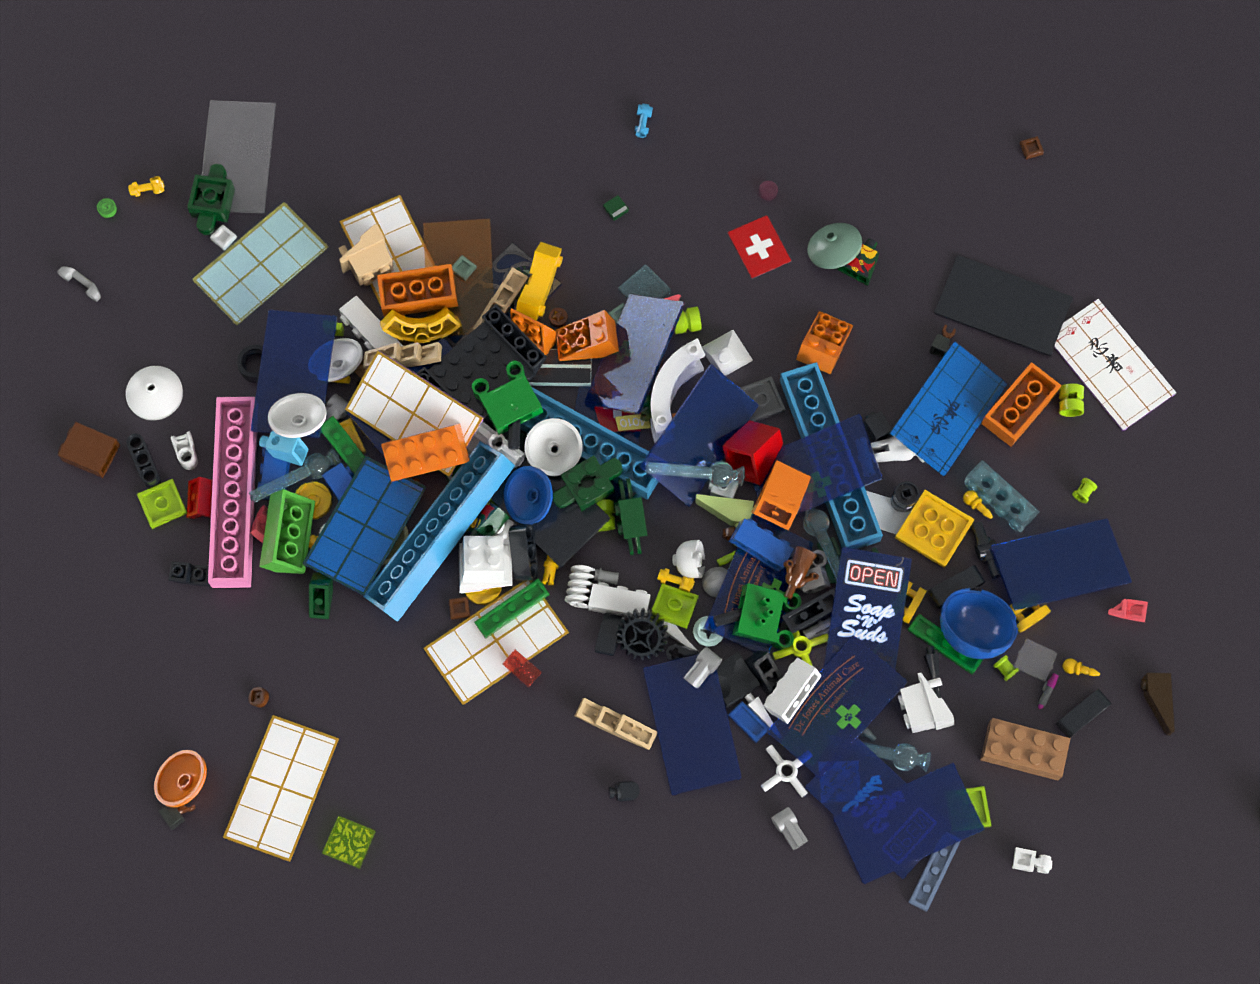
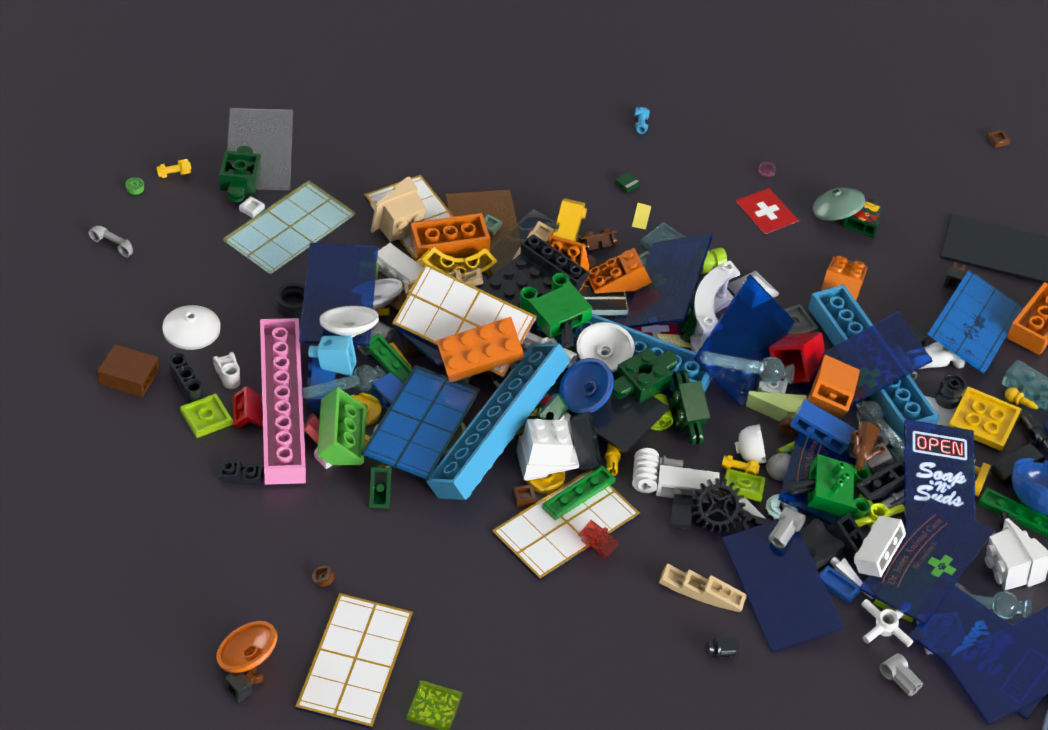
camera: 10 degrees left, 25 degrees down
(581, 284) = (606, 238): none -> reddish brown hinge
(625, 252) = (641, 216): none -> light yellow sticker

